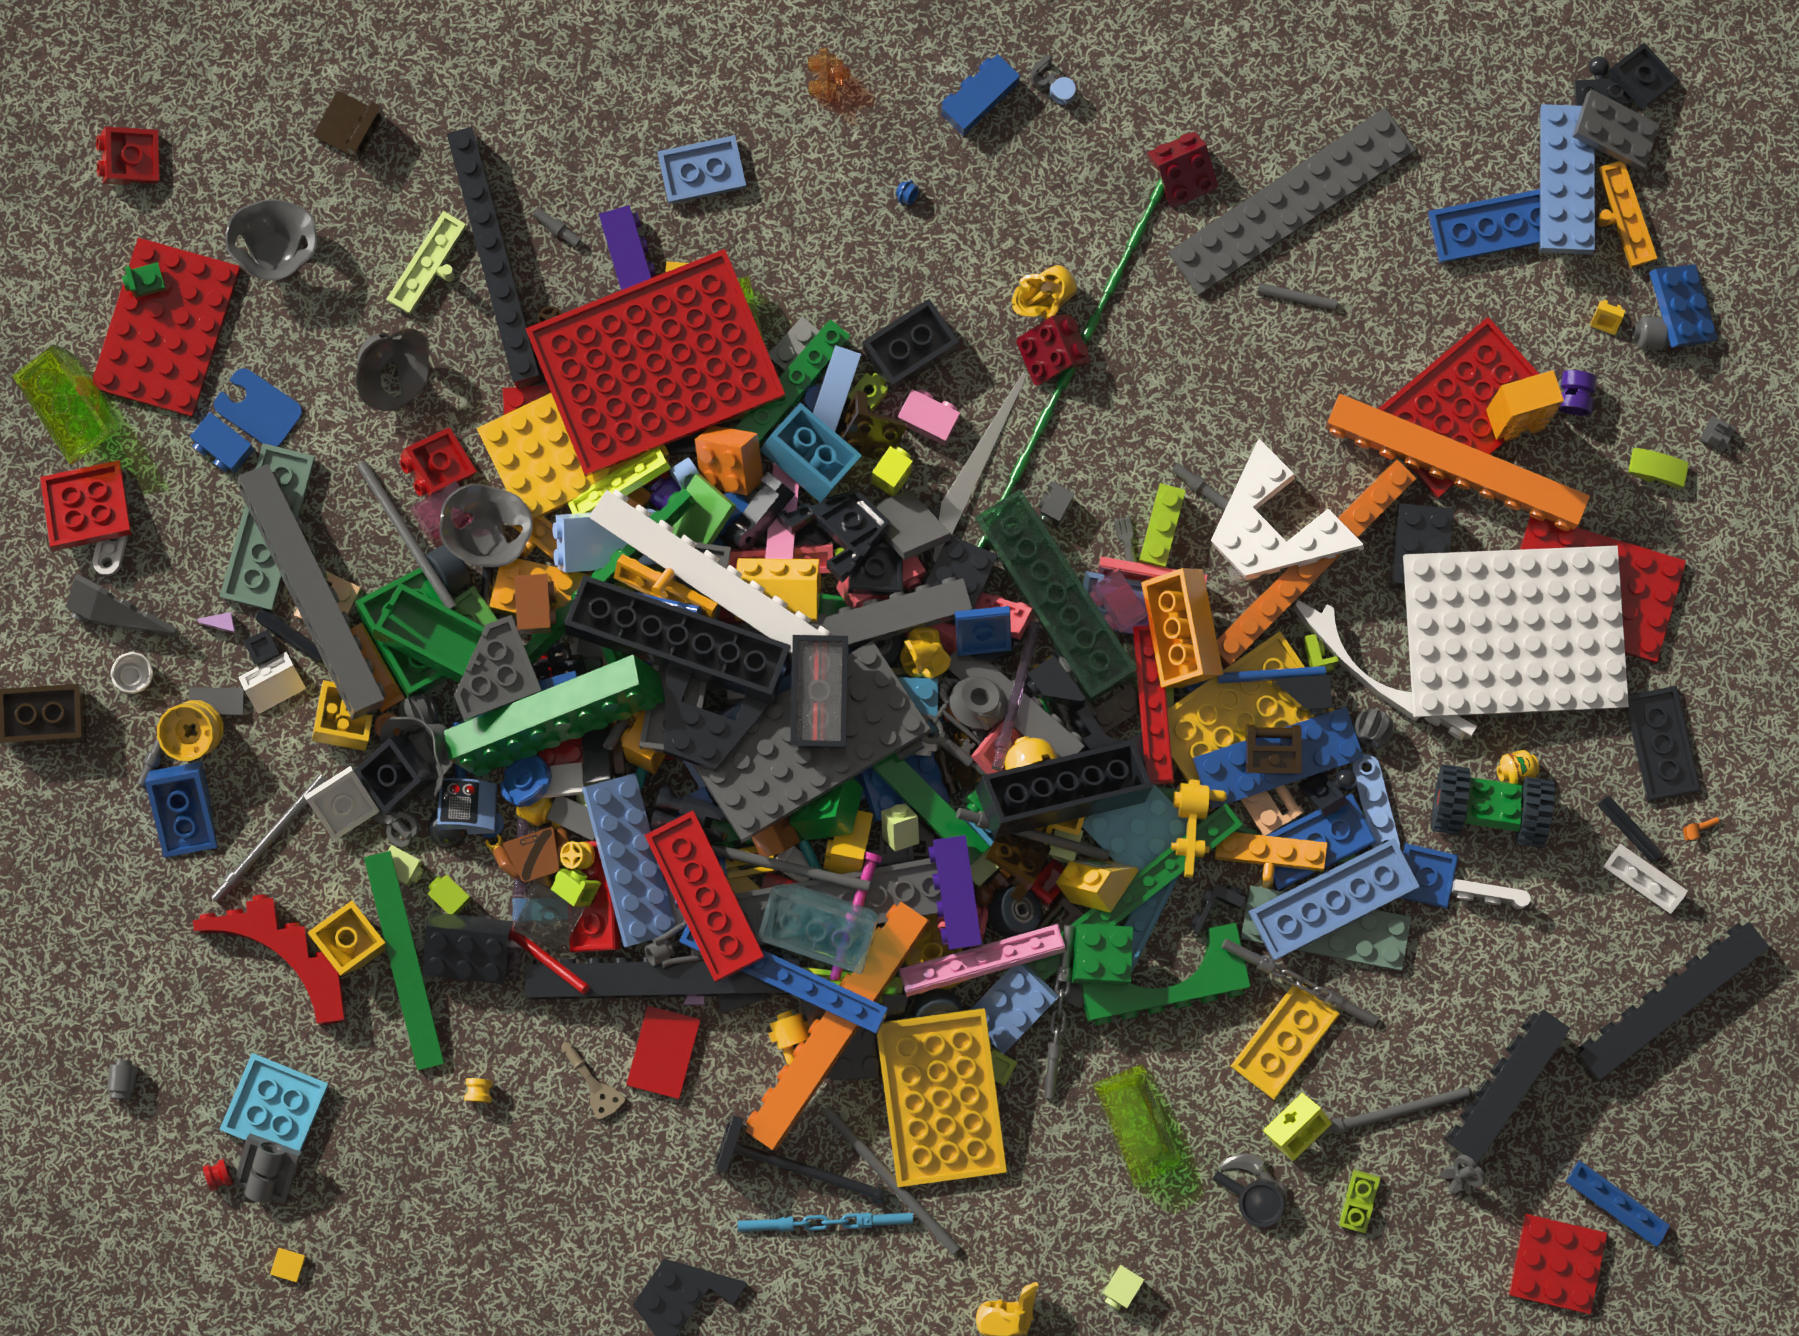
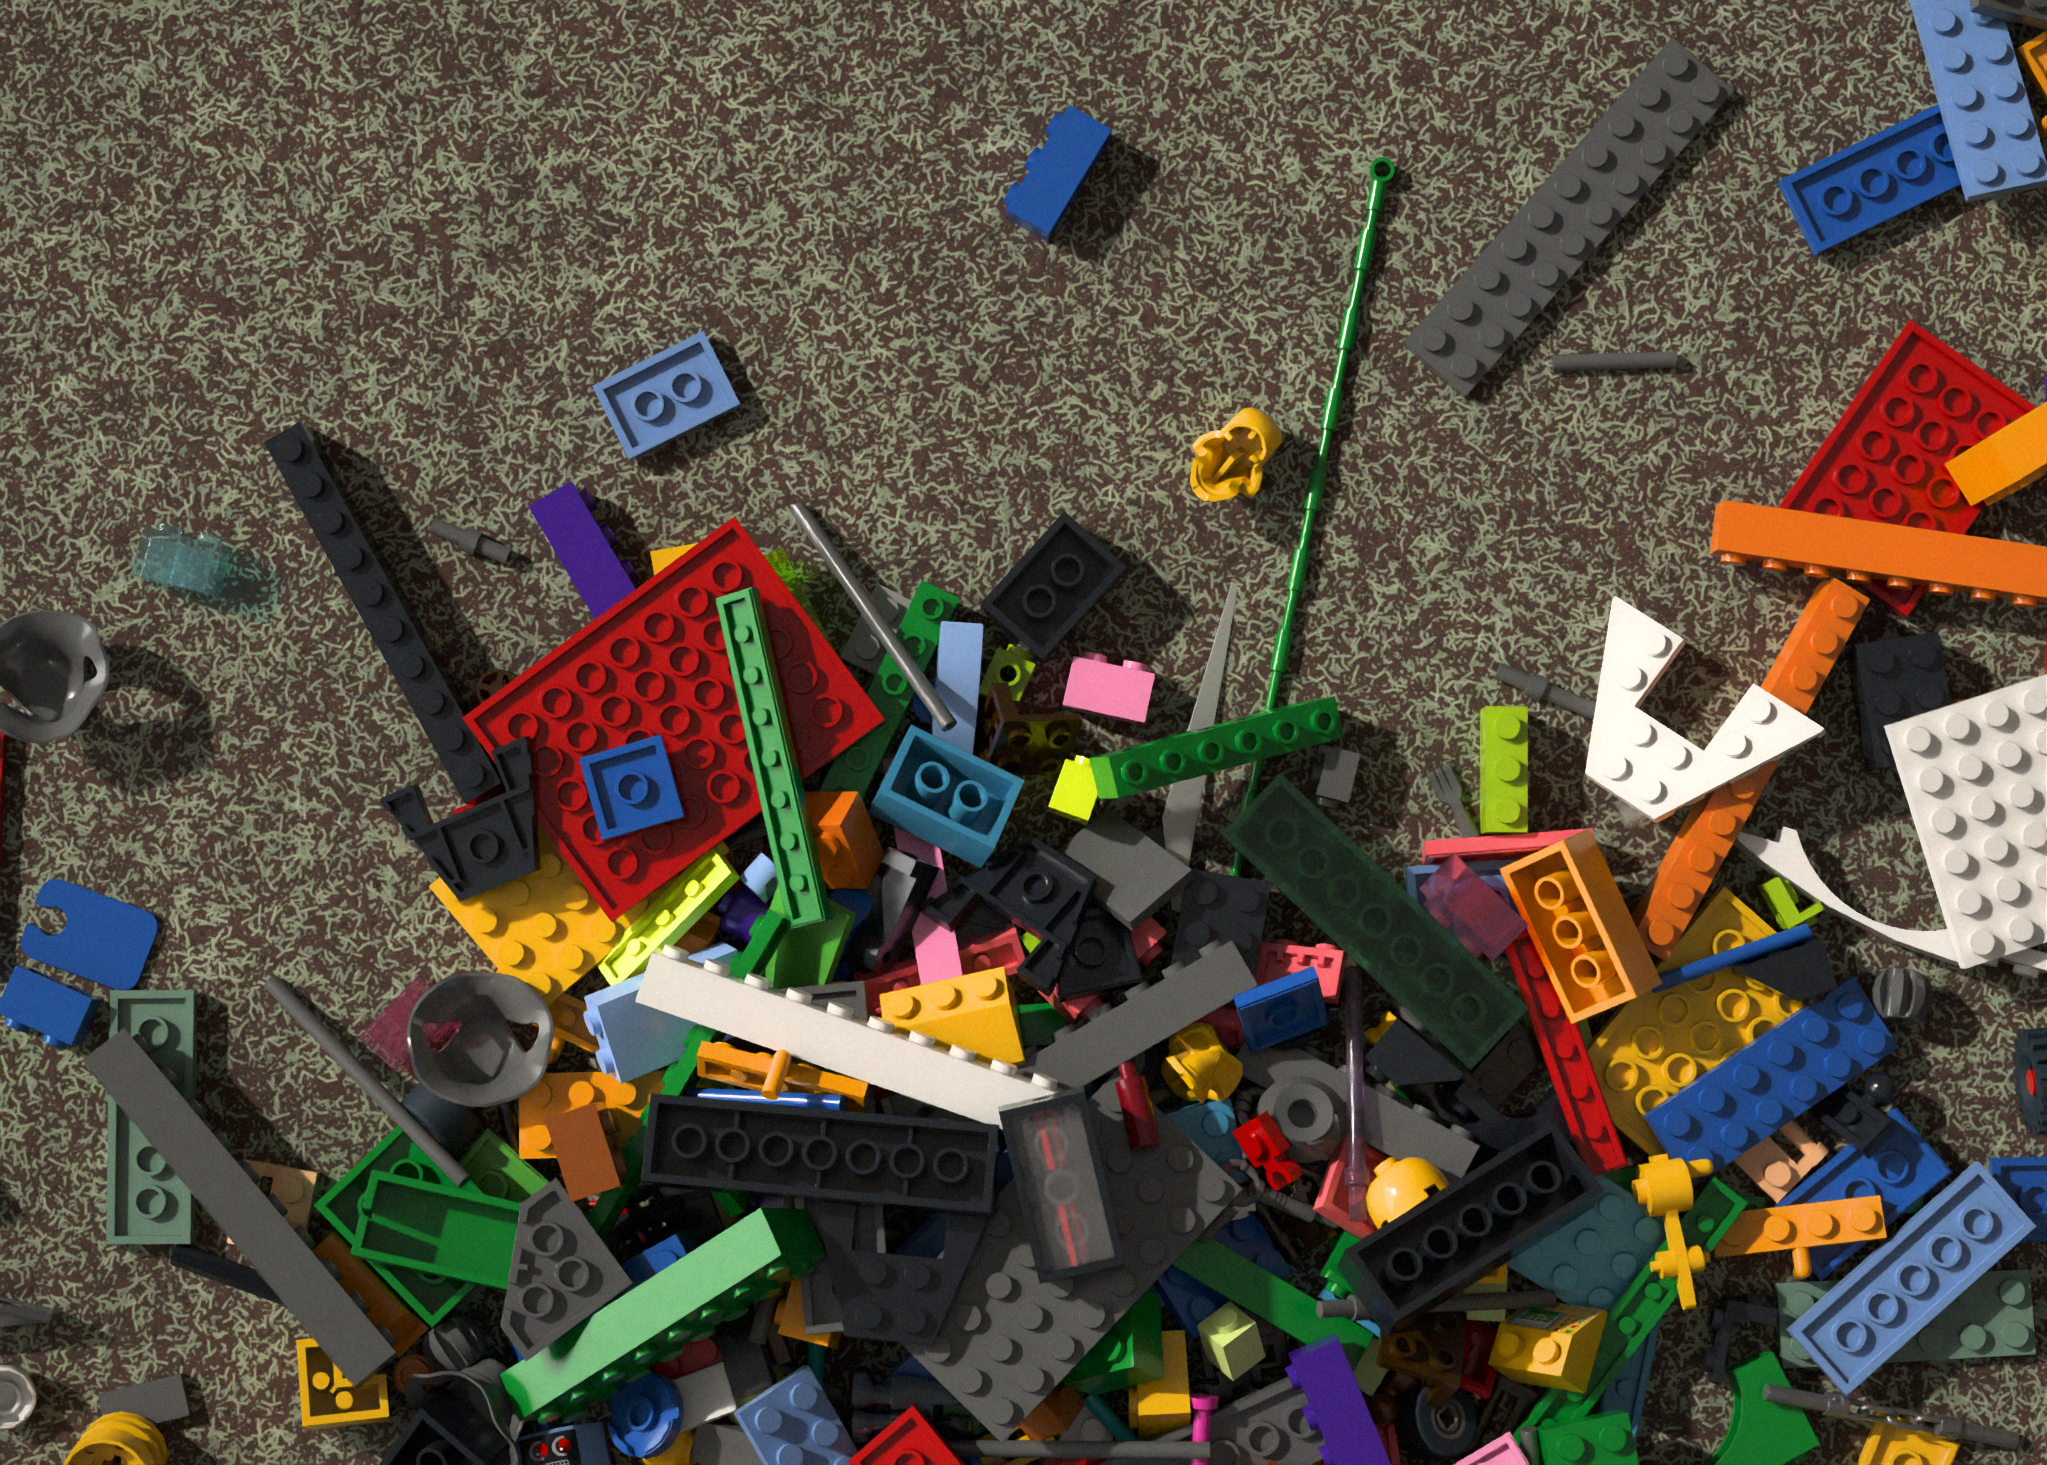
camera: 10 degrees left, 5 degrees up
(221, 622) = (121, 1281): lavender piece -> none
(261, 647) = (191, 1305): black plate -> none
(272, 683) = (220, 1354): white panel -> none
(349, 124) = (113, 463): dark brown bracket -> none
(375, 194) = (182, 561): none -> clear light blue brick
(410, 355) = (310, 815): dark grey piece -> none
(427, 263) = (289, 647): yellowish green plate -> none
(436, 463) = (382, 953): red plate -> none
(520, 407) = (486, 842): none -> black wing
(619, 395) = (632, 787): none -> blue plate
(710, 399) = (773, 758): none -> green tile
(794, 332) = (873, 616): none -> dark grey piece
(831, 75) = (825, 201): clear orange hips -> none
(878, 663) = (1137, 1108): none -> dark red cylinder
(907, 192) = (986, 351): blue plate -> none
(950, 709) = (1266, 1145): none -> red plate
(985, 464) = (1216, 747): none -> green brick
(1053, 348) = (1269, 537): dark red bracket -> none
(1060, 90) = (1177, 135): leg -> none
(1184, 168) = (1395, 208): dark red bracket -> none
(1273, 758) = (1770, 1089): dark brown plate -> none
(1375, 801) = (1930, 1107): light blue plate -> none

